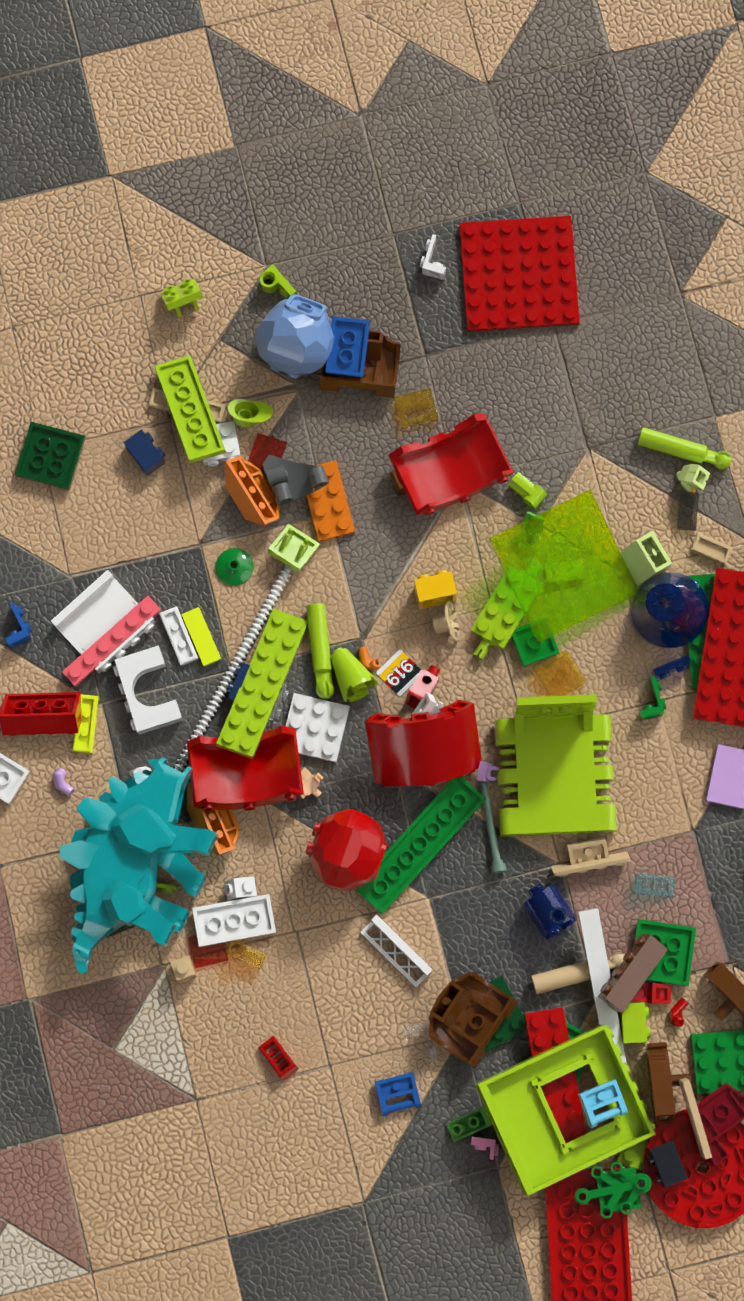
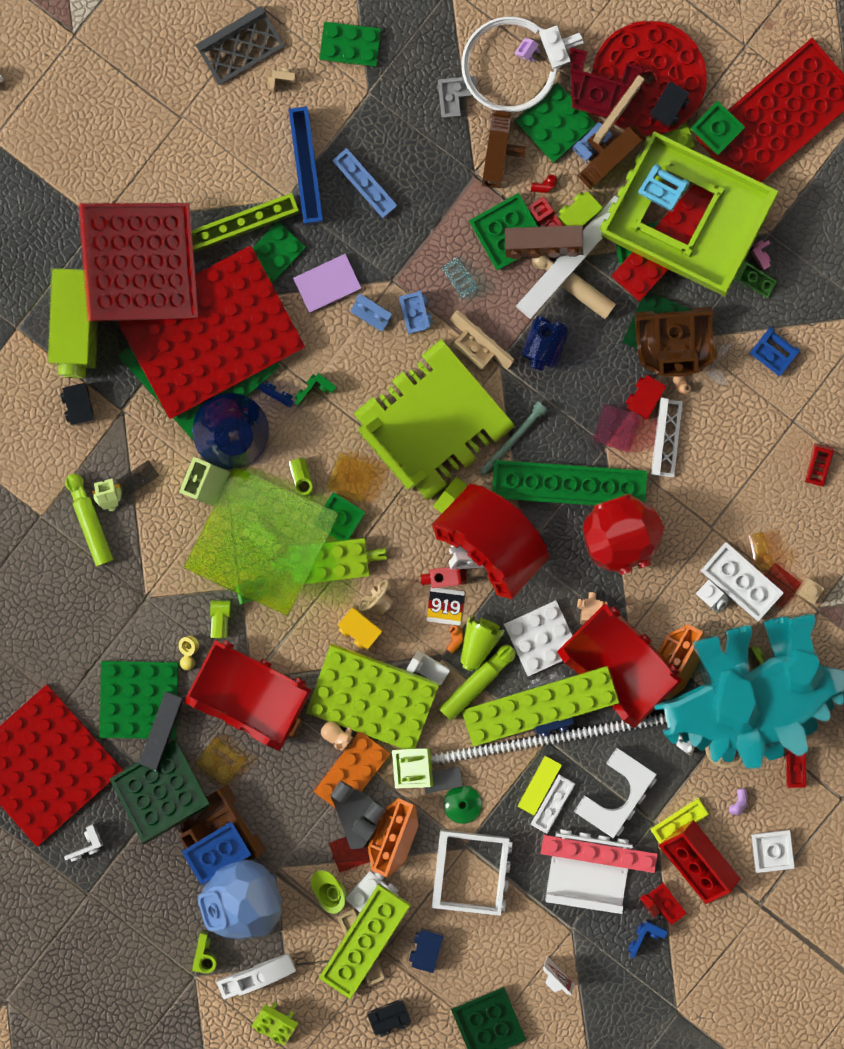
camera: 135 degrees left, 10 degrees up
(30, 664) = (667, 903): none -> red plate
(42, 533) = (556, 978): none -> white piece
(43, 649) = (650, 905): none -> red tile
(49, 845) = (795, 770): none -> red plate
(116, 385) = (389, 1017): none -> black brick
(153, 506) = (502, 883): none -> white window
(227, 309) = (256, 977): none -> white slope
(263, 567) = (445, 780): none -> dark grey slope
(363, 620) = (428, 667): none -> white bracket
(367, 509) = (334, 734): none -> light nougat animal
(373, 558) = (372, 697): none -> lime plate
(428, 342) = (161, 797): none -> dark green plate
(429, 996) = (681, 385): none -> light nougat arm
(435, 915) = (616, 428): none -> clear pink brick
(442, 959) = (645, 397): none -> red brick
(475, 379) = (161, 731): none -> black tile
(485, 772) = (474, 476): lavender tile -> none
(486, 743) = (450, 494): none -> lime slope
(512, 383) = (133, 695): none -> green plate
(524, 450) = (187, 661): none -> light yellow plate
(592, 637) = (301, 474): none -> lime piece
(616, 1188) = (718, 129): green plant -> none
(653, 827) = (415, 313): none -> medium blue bracket
(680, 792) = (371, 312): none -> medium blue bracket
(684, 1067) = (584, 149): none -> medium blue bracket
(711, 549) = (154, 436): tan tile -> none

